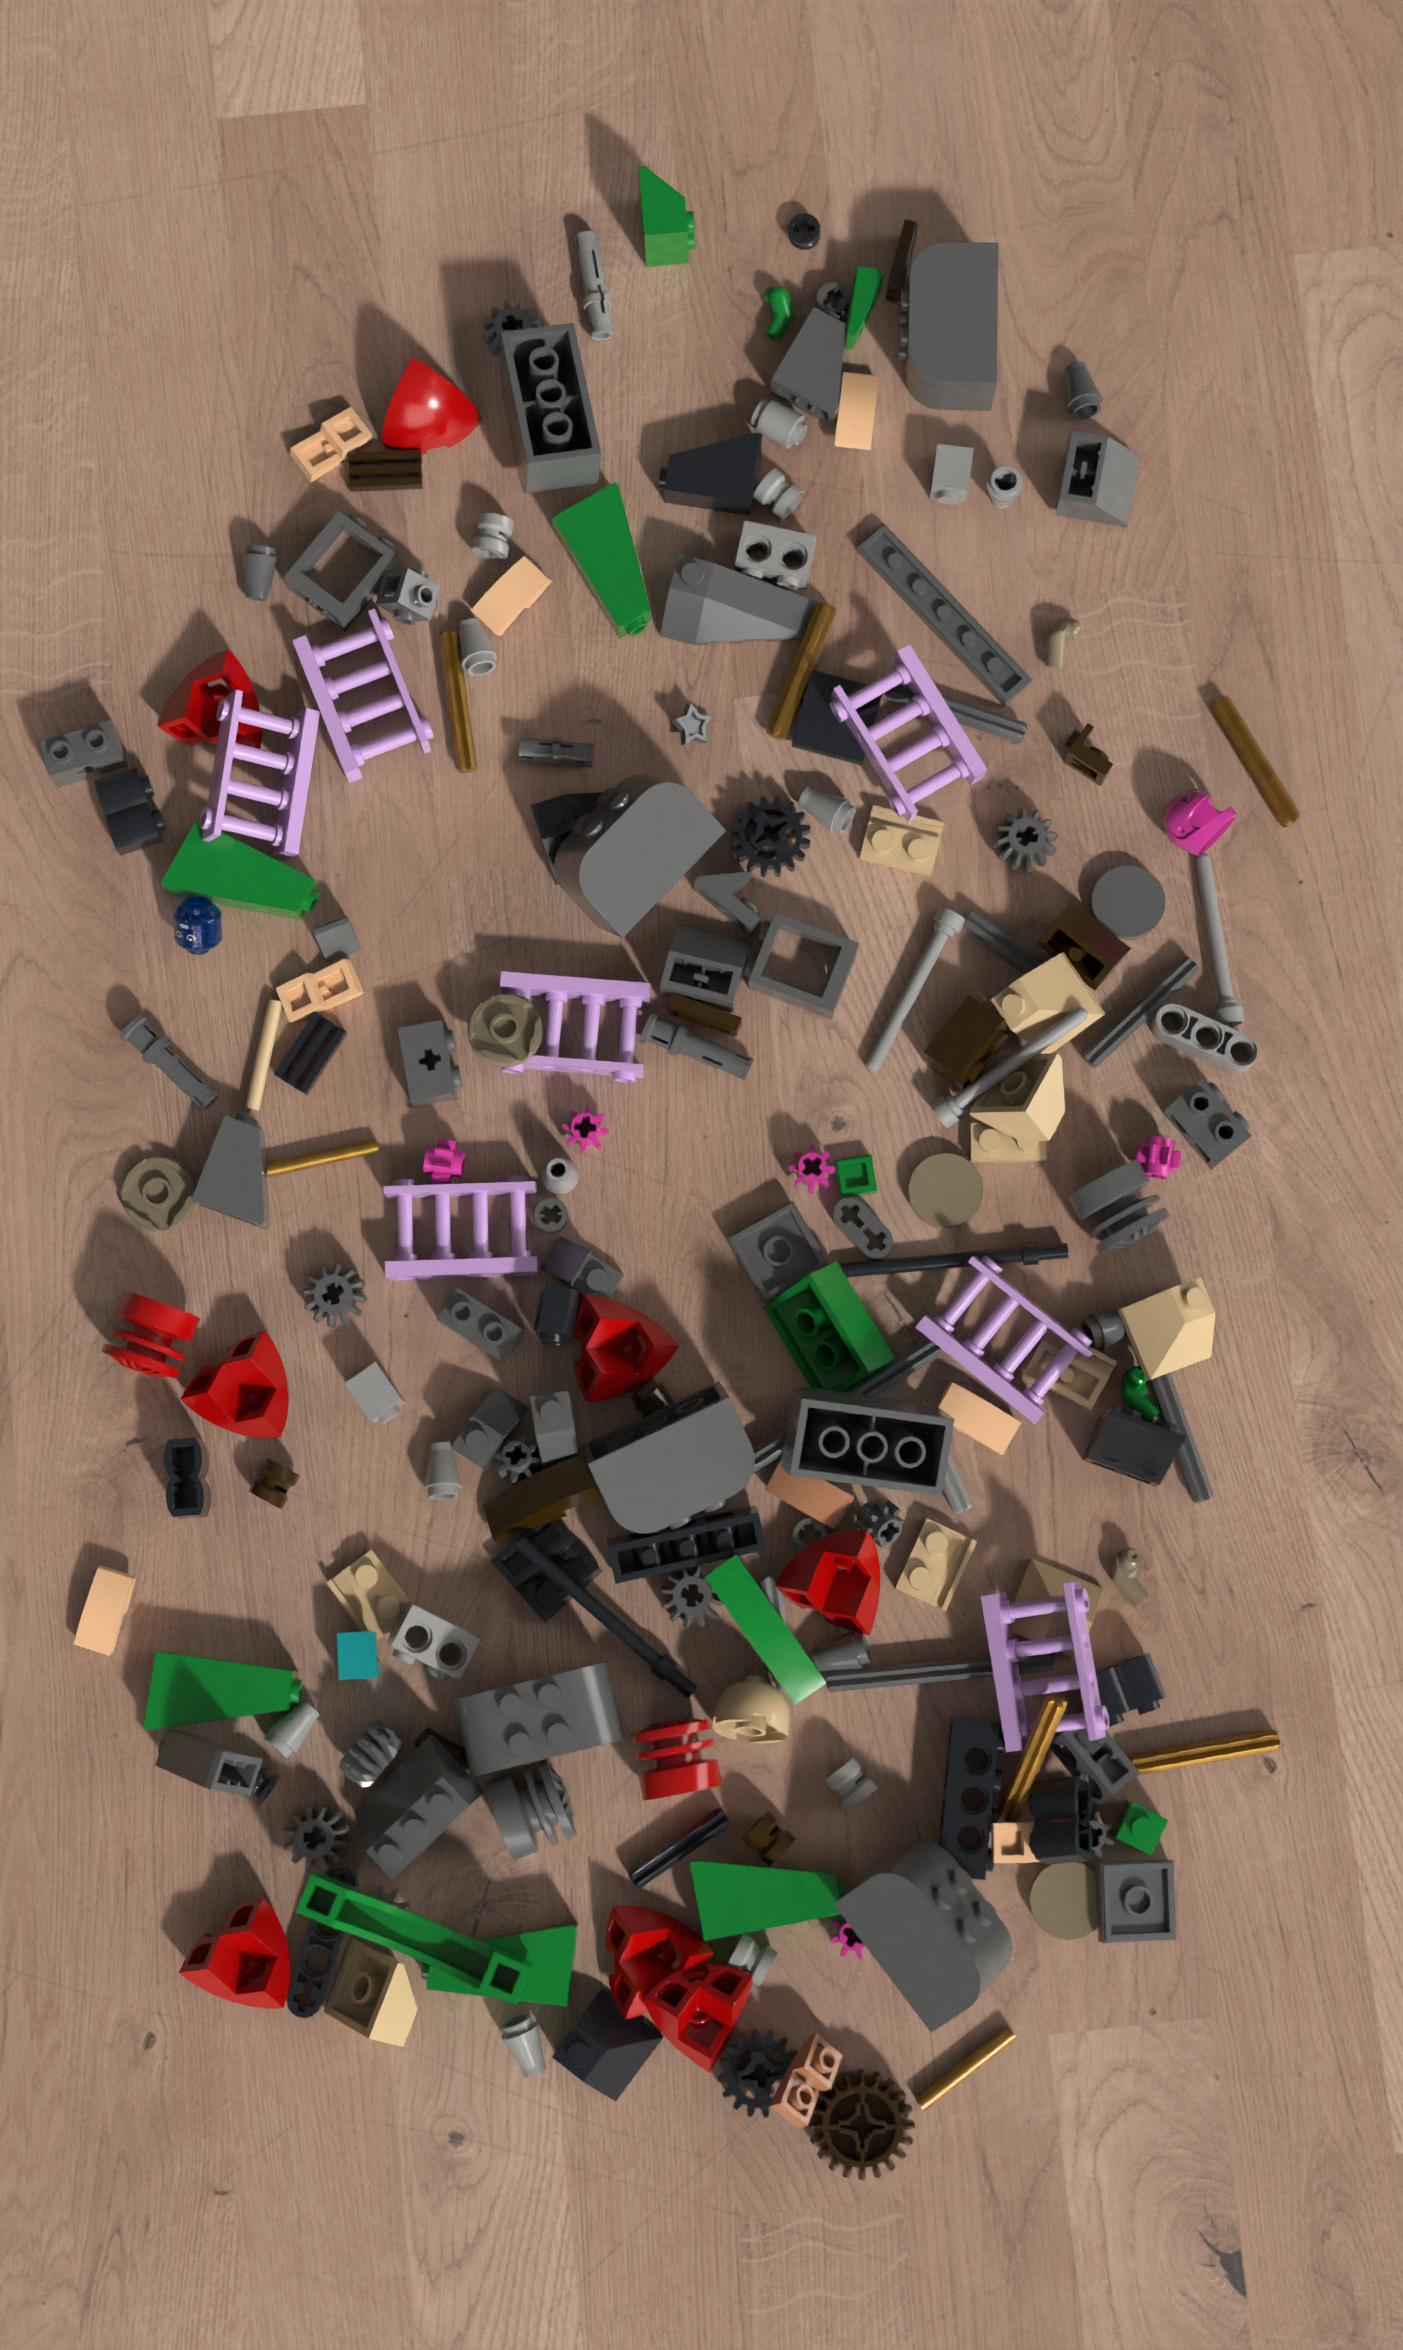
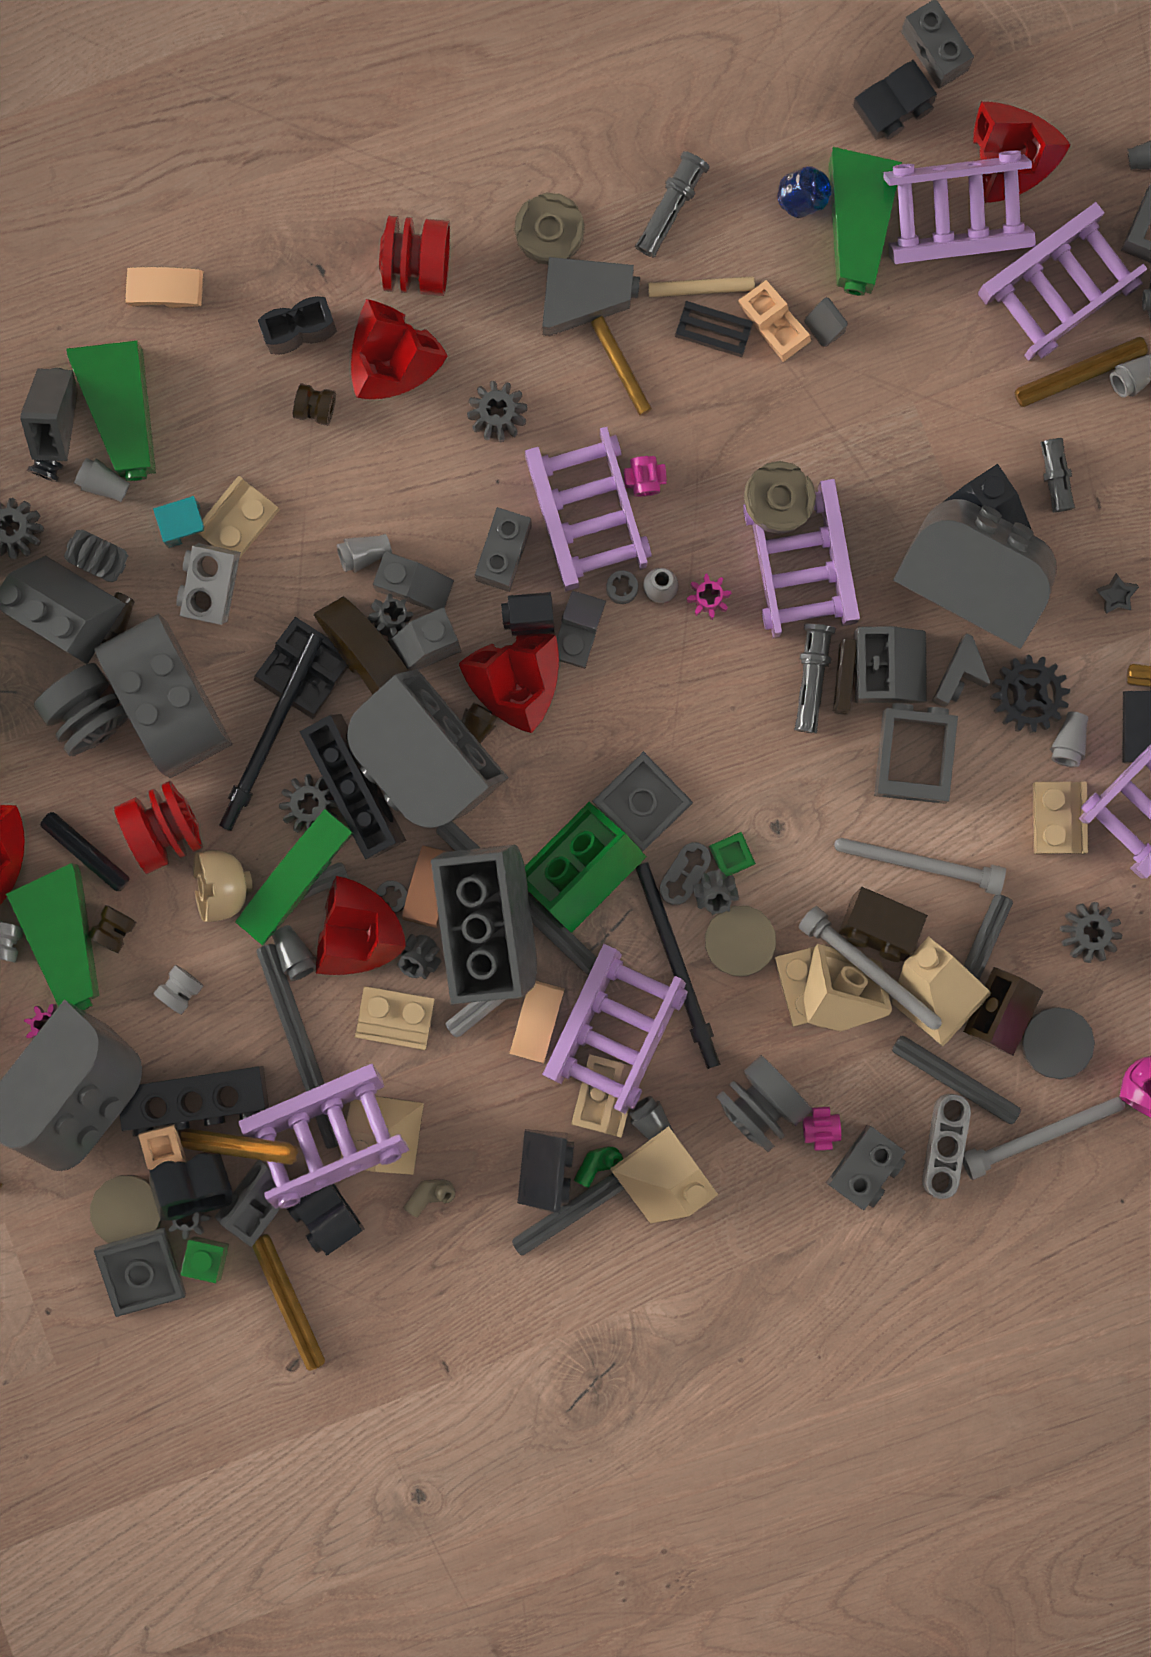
camera: 75 degrees right, 5 degrees up
(375, 1394) = (417, 472): light grey brick -> none
(416, 1045) = (743, 421): dark grey brick -> none
(811, 1158) = (717, 813): dark pink gear -> none
(890, 1200) = (716, 892): none -> dark grey gear

